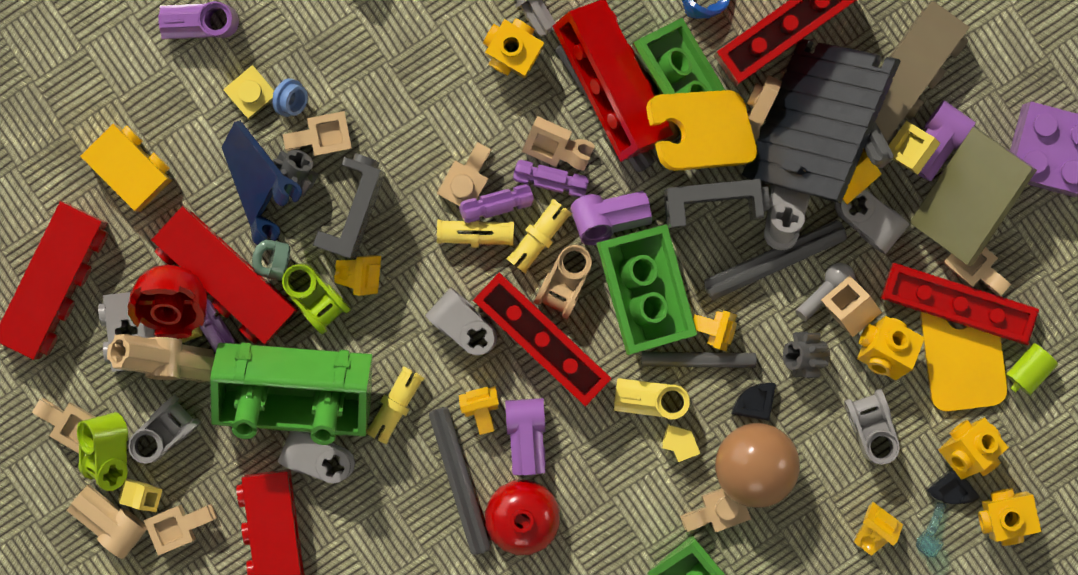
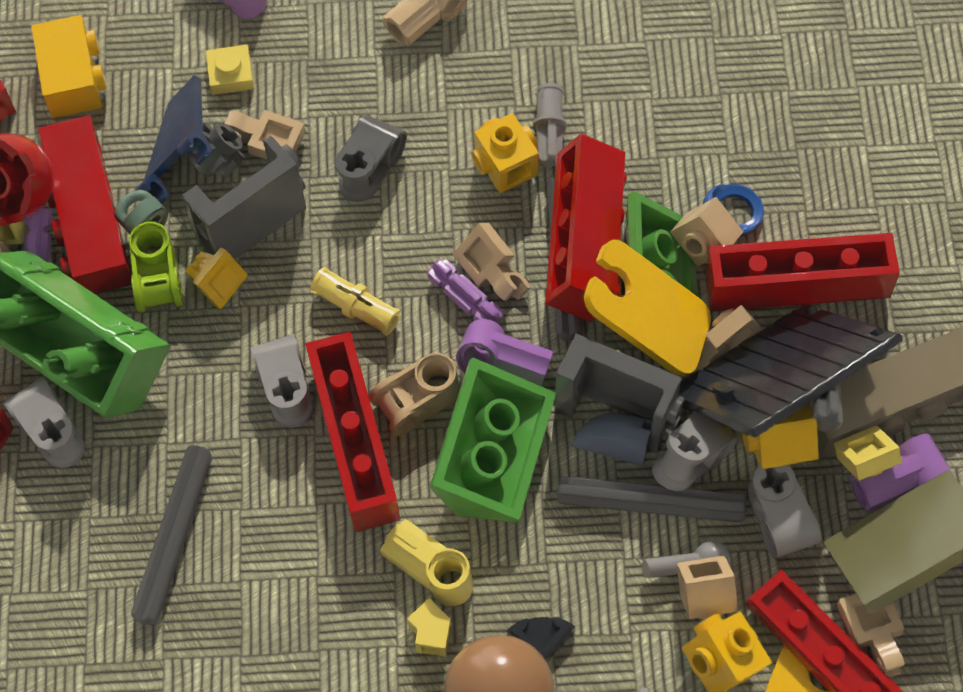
camera: 35 degrees right, 25 degrees down
(289, 98) = (270, 92): medium blue plate -> none
(395, 405) = (160, 420): light yellow pin -> none
(409, 101) = (368, 157): none -> dark grey piece
(465, 181) = (378, 253): tan plate -> none
(480, 403) = (244, 467): yellow brick -> none
(496, 203) = (394, 283): medium lavender axle -> none
(506, 510) = (210, 609): red cylinder -> none
(526, 427) = (277, 514): medium lavender piece -> none
(539, 236) = (417, 340): light yellow pin -> none
(698, 359) = (506, 556): dark grey piece -> none
(702, 30) = (705, 227): none -> tan plate
(720, 329) = (546, 533): yellow brick -> none
(724, 224) = (616, 436): none -> sand blue brick
(806, 355) = (626, 611): dark grey gear -> none

